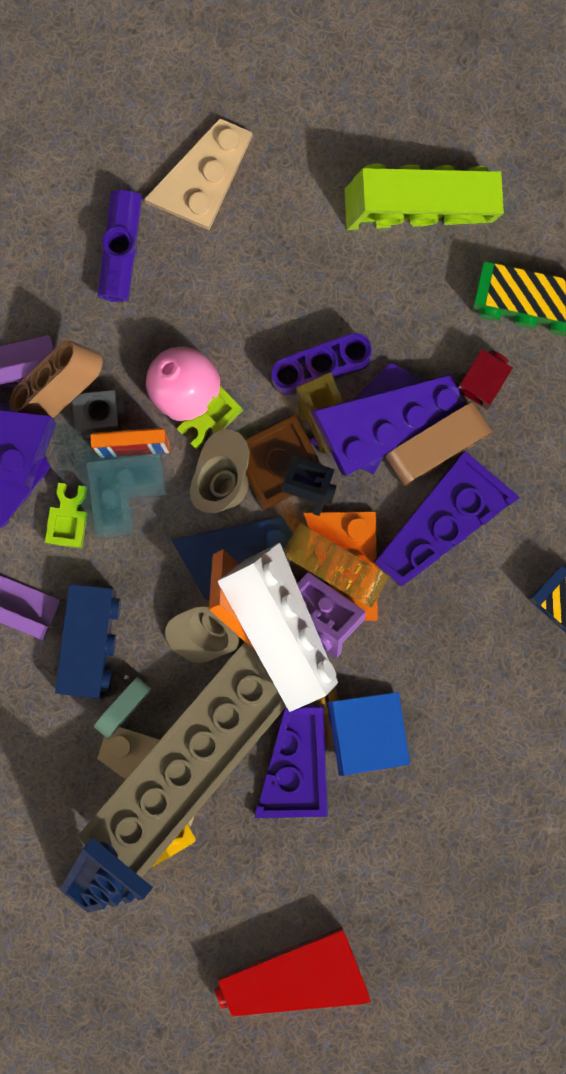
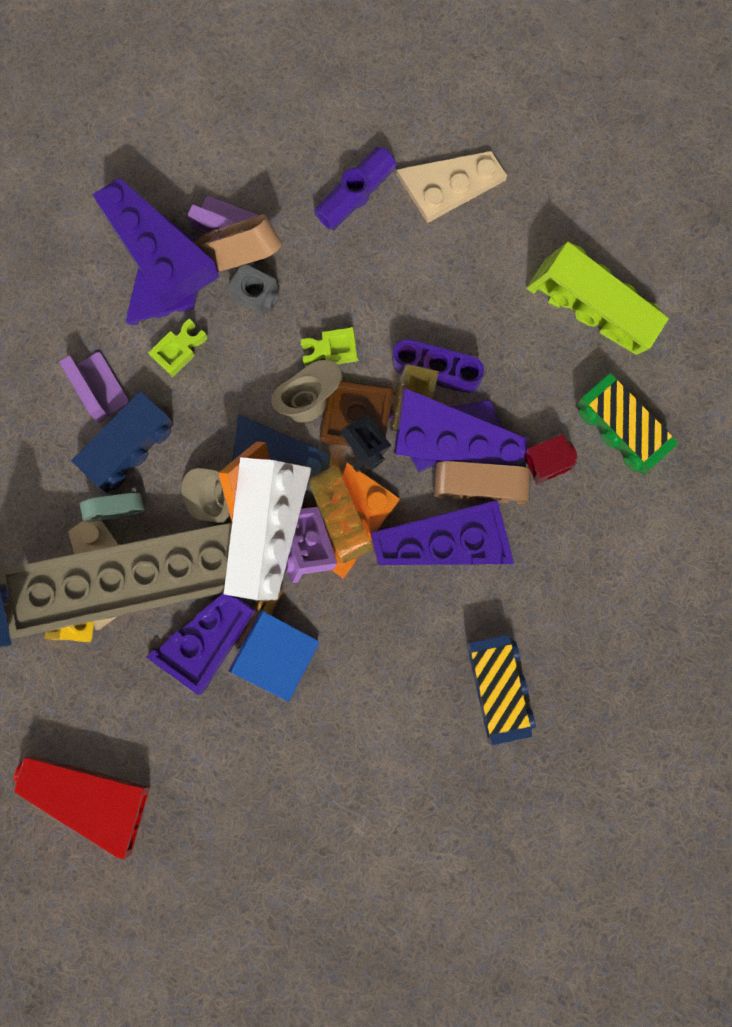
camera: 30 degrees right, 5 degrees down
(115, 485) = (225, 348): clear light blue brick -> none
(130, 442) = (258, 323): orange tile -> none
(182, 383) = (327, 308): bright pink cylinder -> none

